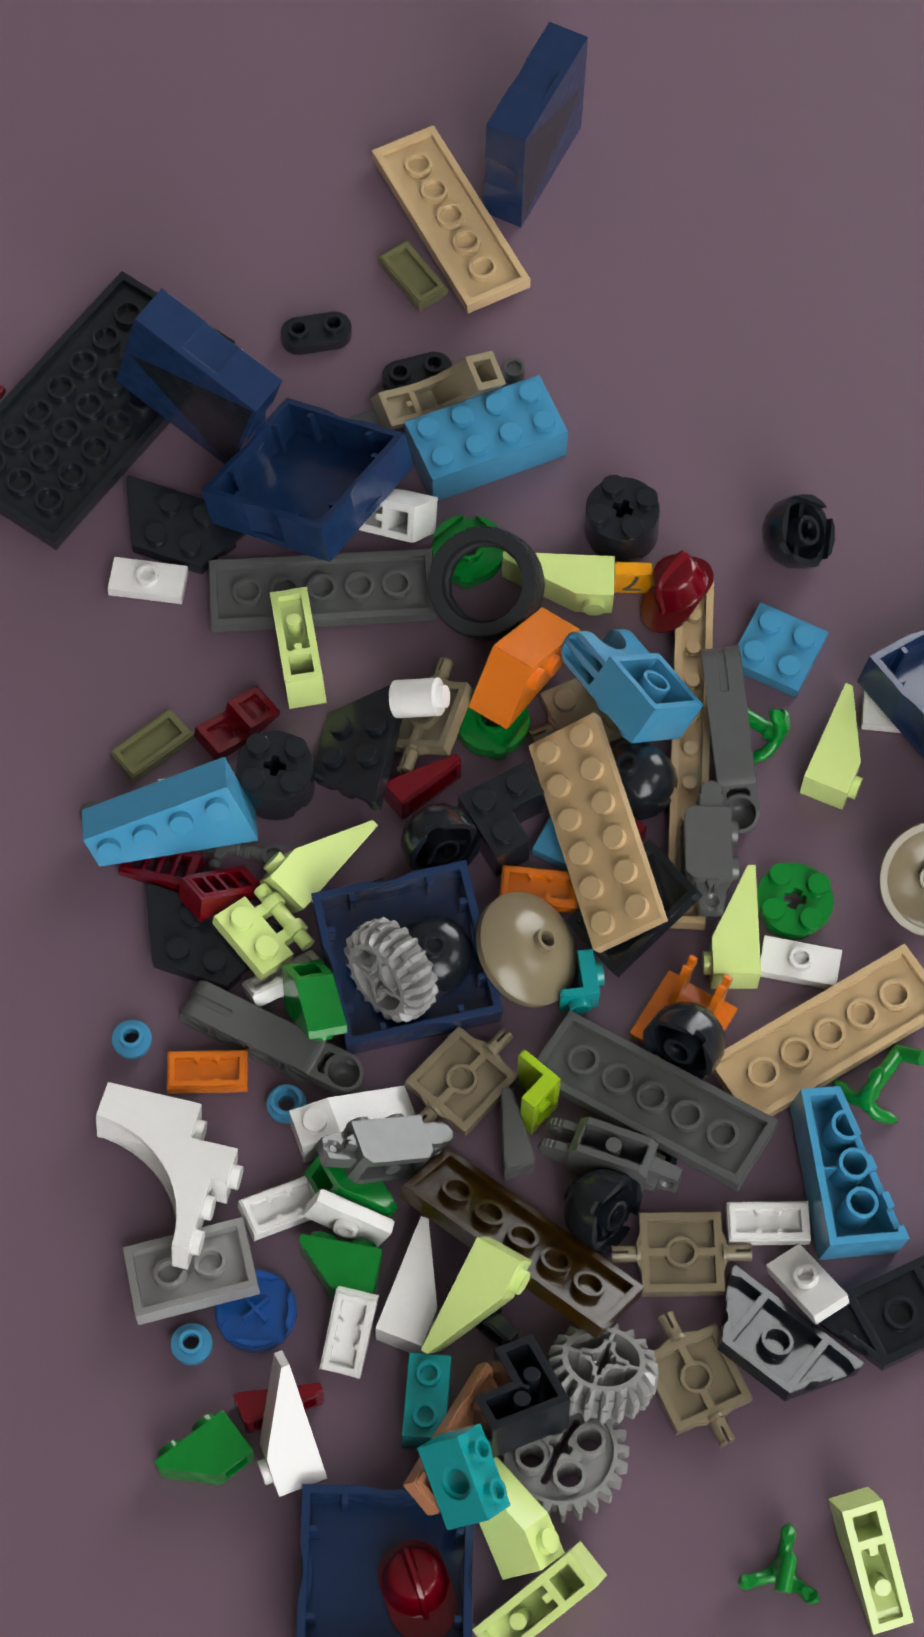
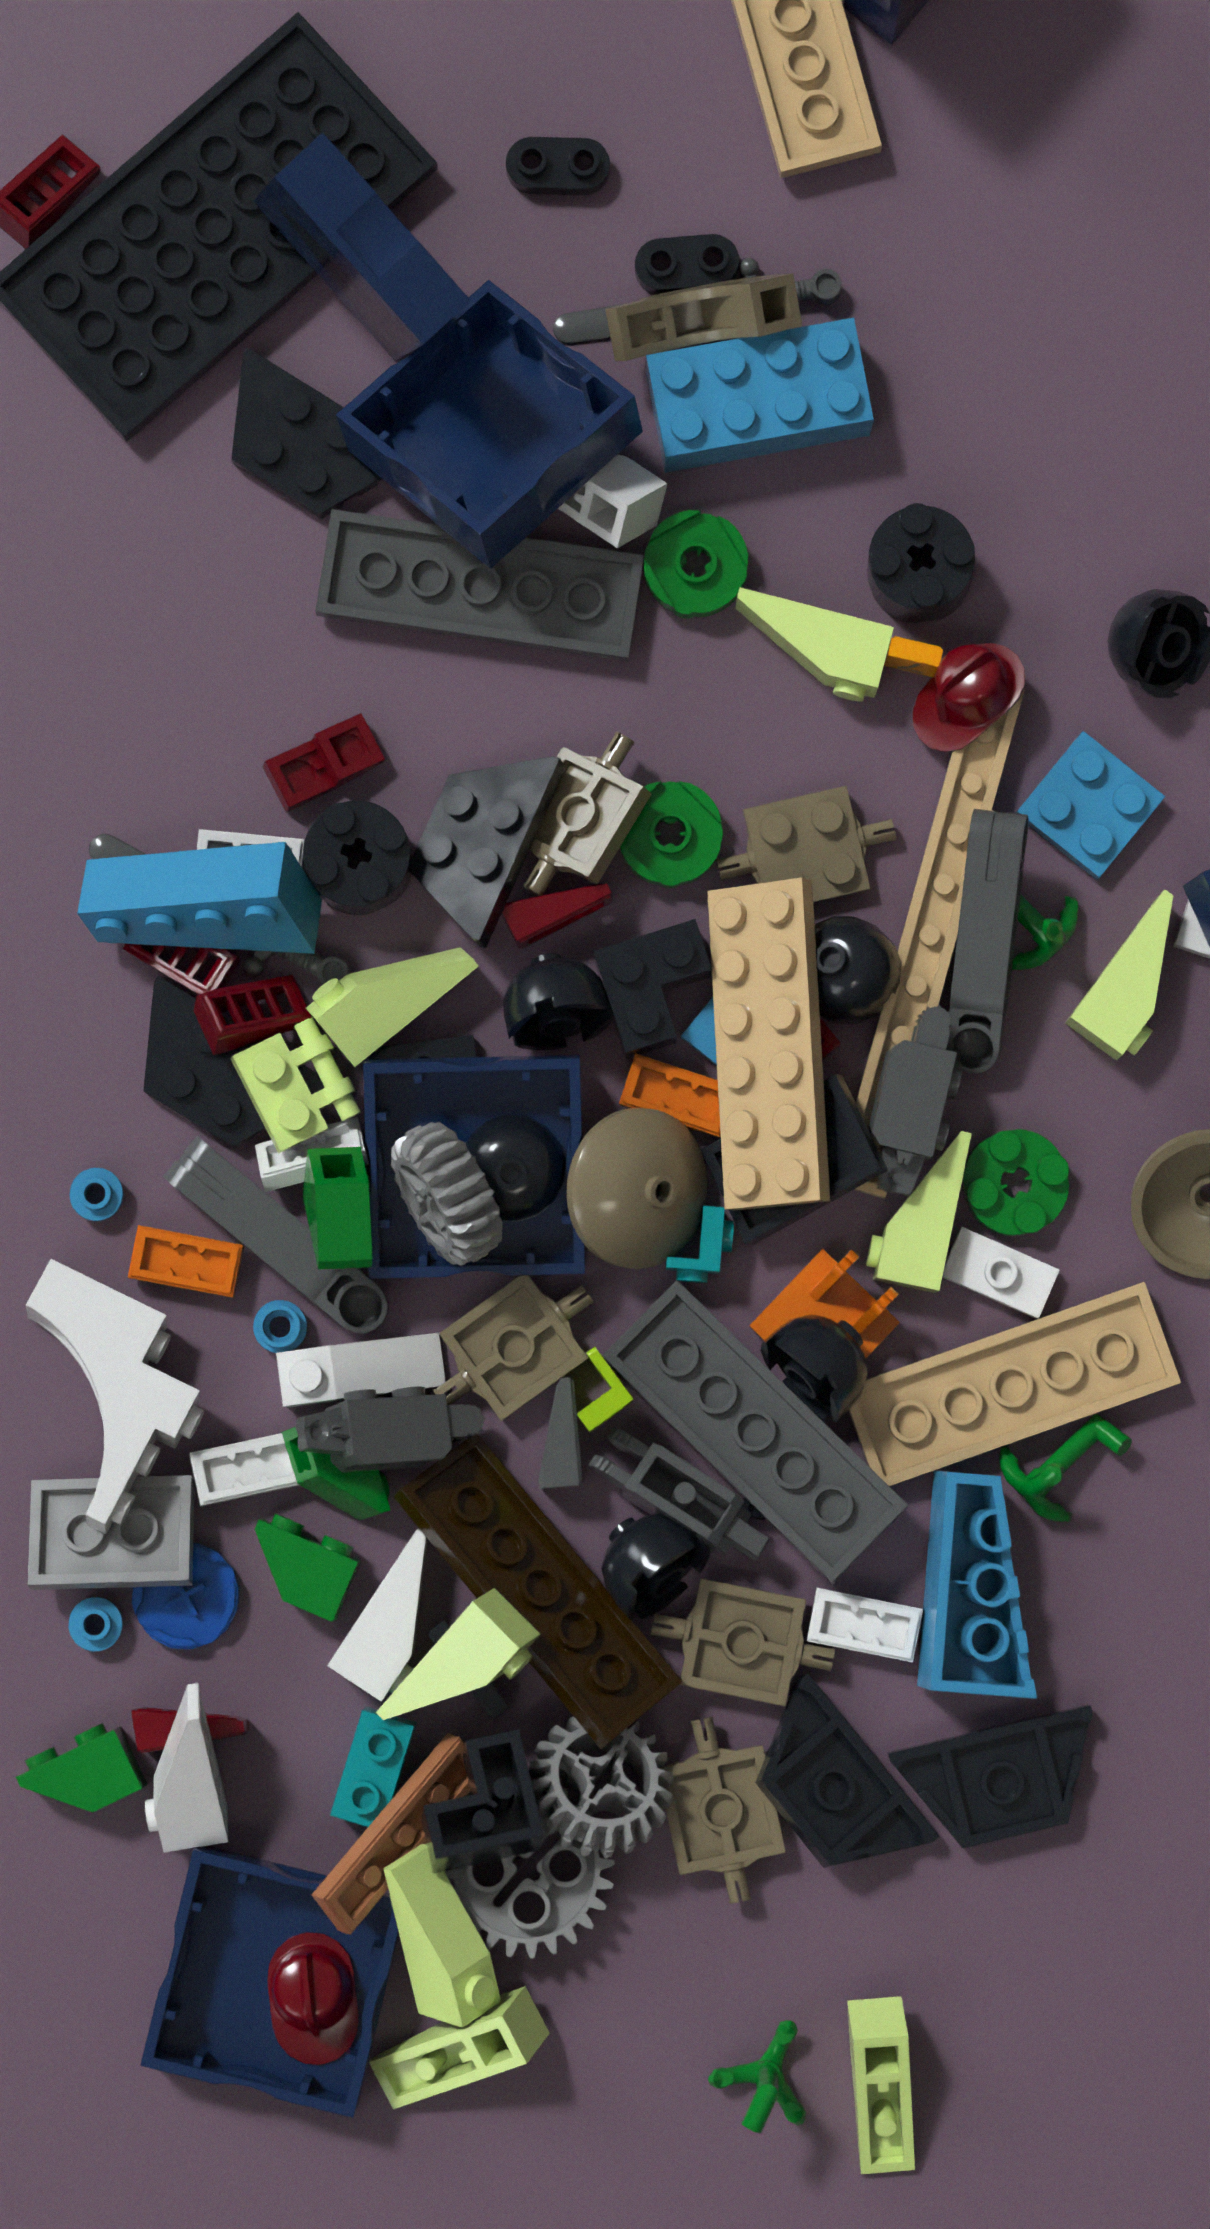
camera: 15 degrees right, 20 degrees up
(148, 580) = (244, 516): white plate -> none
(151, 746) = (202, 771): olive tile -> none
(298, 647) = (426, 672): yellowish green slope -> none
(348, 1218) = (324, 1511): white plate -> none
(349, 1332) = (295, 1657): white plate -> none
(413, 276) = (716, 98): olive tile -> none
(418, 697) = (570, 797): white brick -> none
(450, 555) = (653, 672): black tyre -> none
(464, 1476) = (388, 1903): teal brick -> none
(520, 667) = (728, 771): orange wedge -> none
(631, 685) = (865, 837): dark azure brick -> none
(807, 1284) = (893, 1719): white plate -> none

